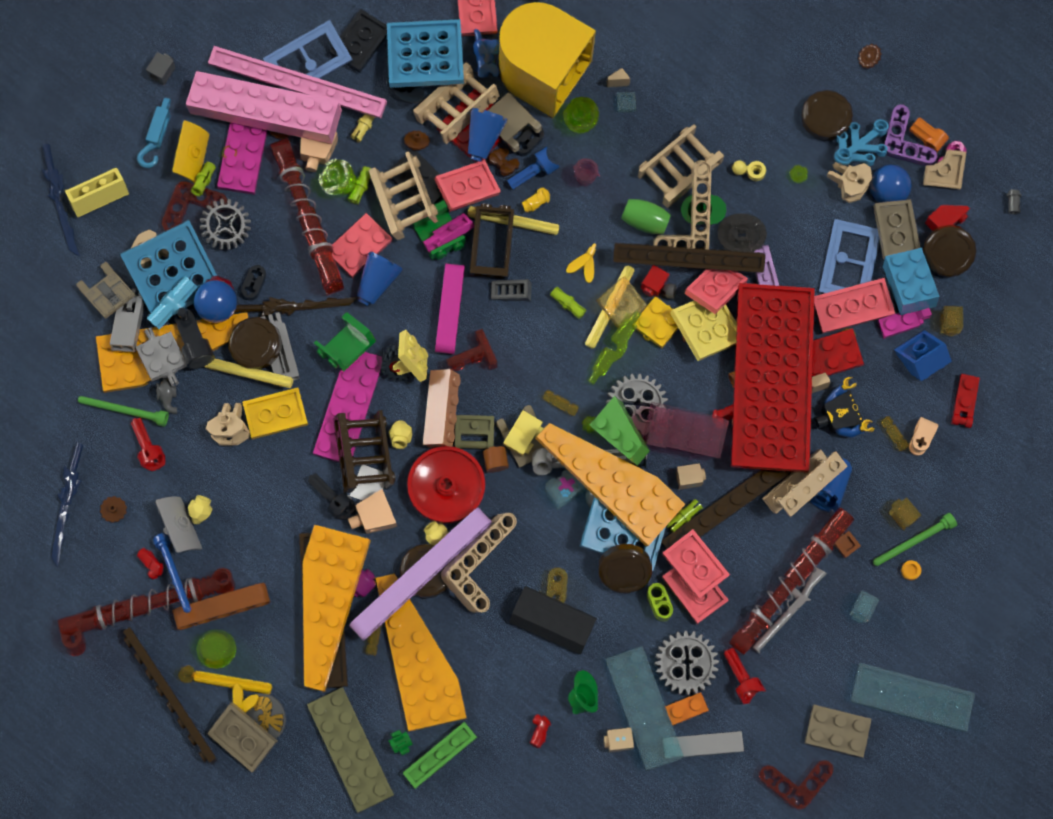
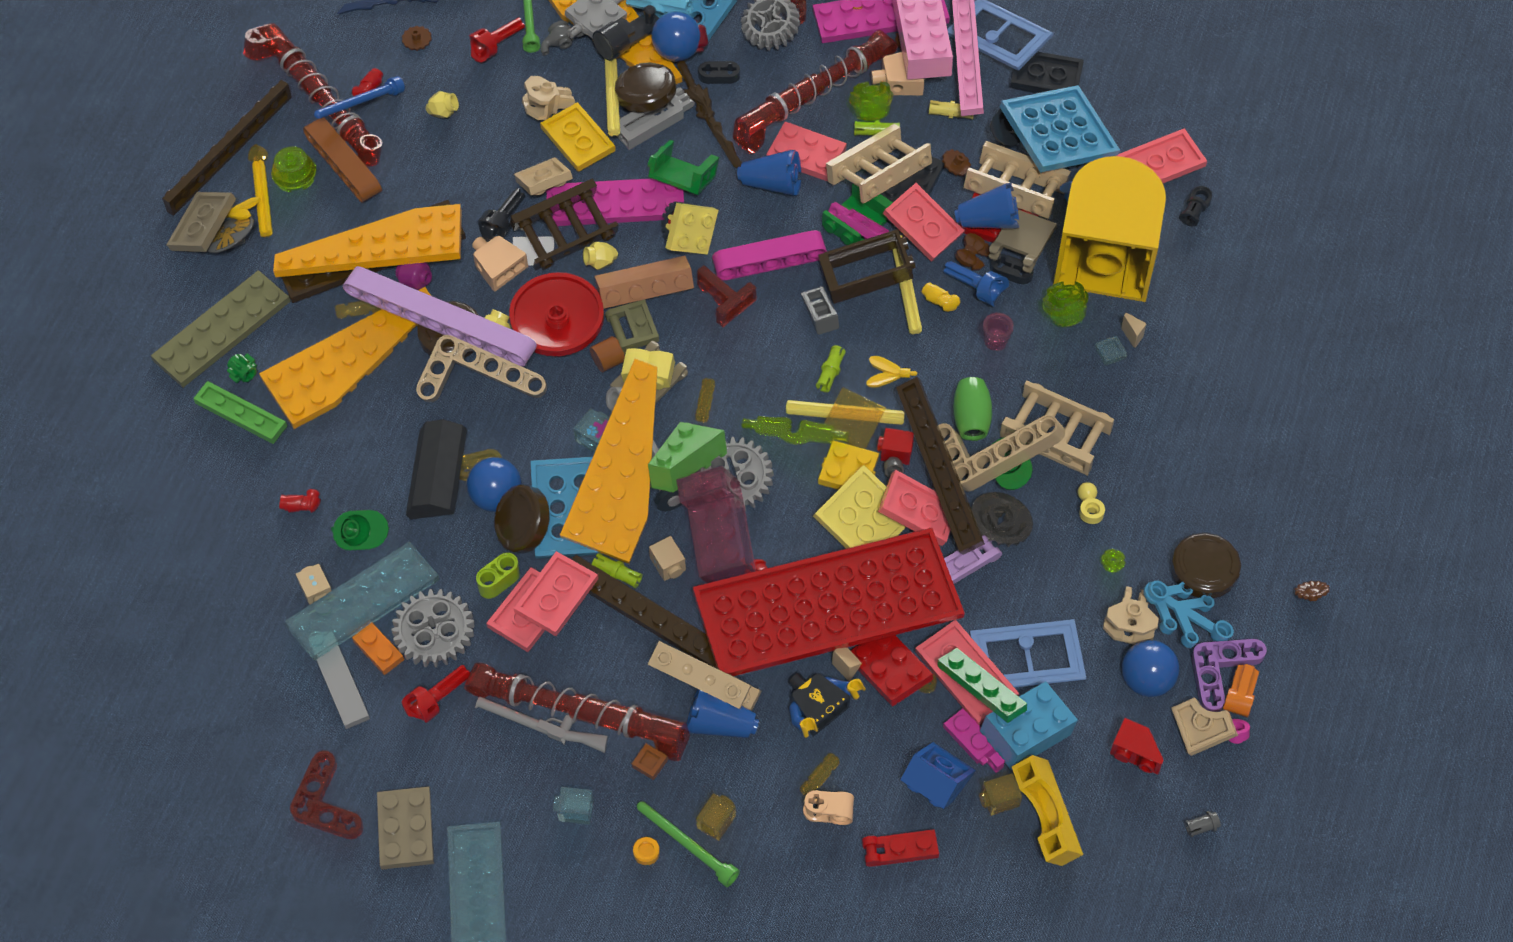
camera: 75 degrees right, 15 degrees down
(178, 524) = (414, 88): light grey shield -> none
(308, 452) = (543, 176): none -> tan plate
(579, 580) = (490, 481): none -> blue piece
(877, 298) = (982, 685): none -> plate
(896, 227) = (1096, 690): dark tan plate -> none
(949, 250) = (1091, 757): dark brown piece -> none
(994, 295) = (1057, 835): none -> yellow arch

